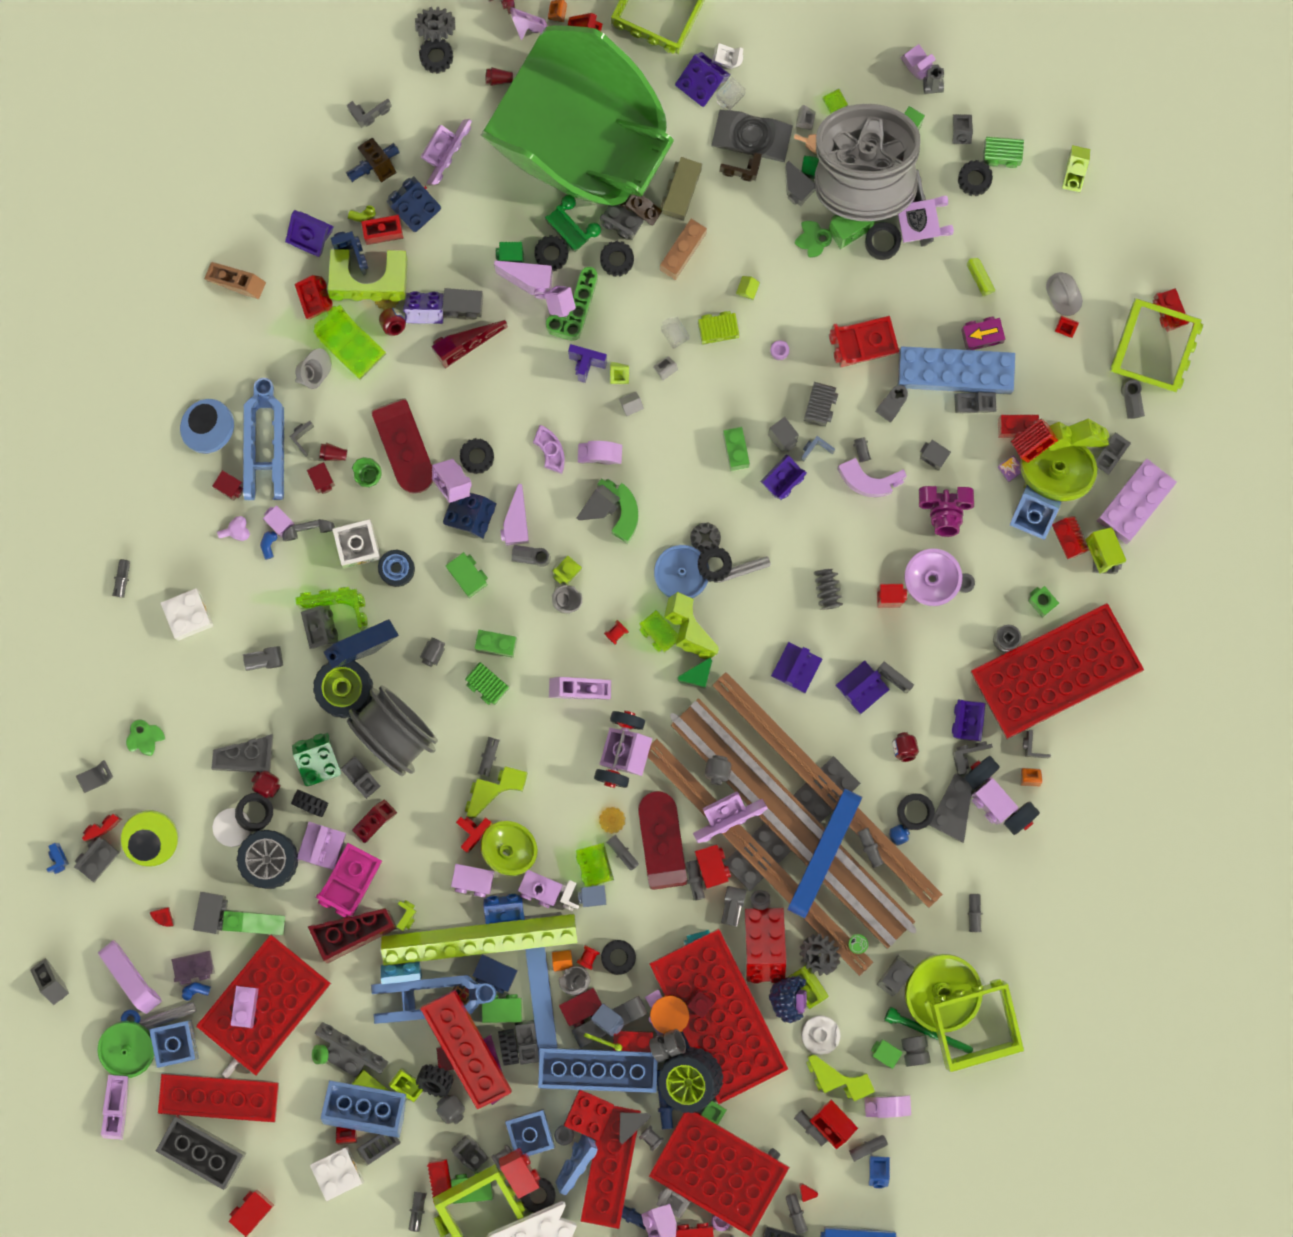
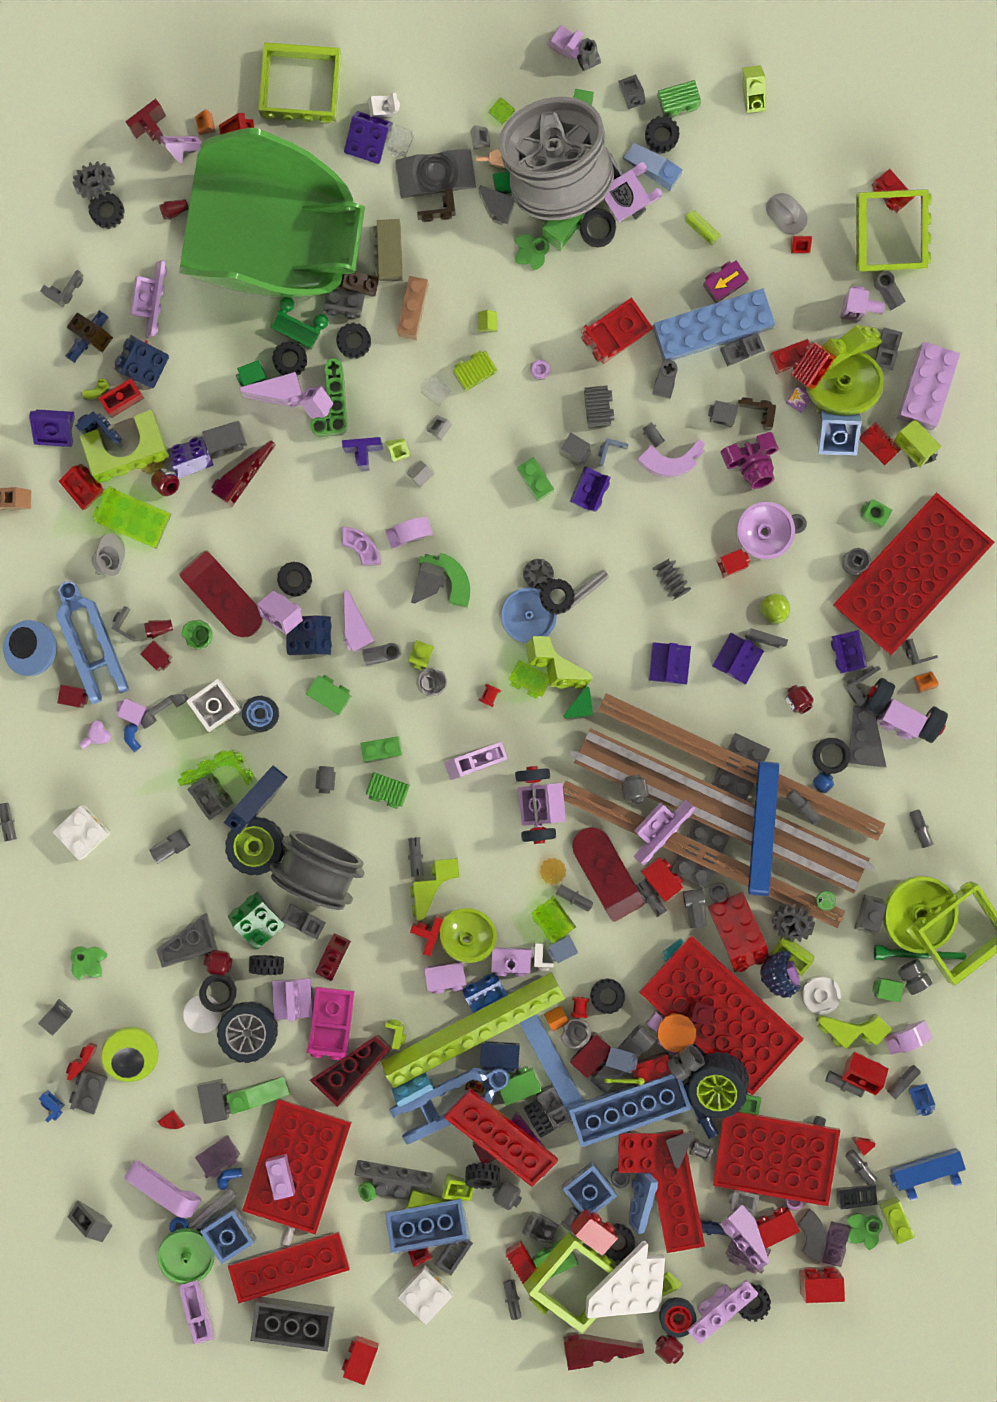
camera: 20 degrees left, 5 degrees up
(915, 654) = (775, 608): none -> lime hair
(958, 204) = (657, 168): none -> medium blue slope
(975, 461) = (768, 417): none -> dark brown bracket
(1098, 400) = (857, 303): none -> lavender brick

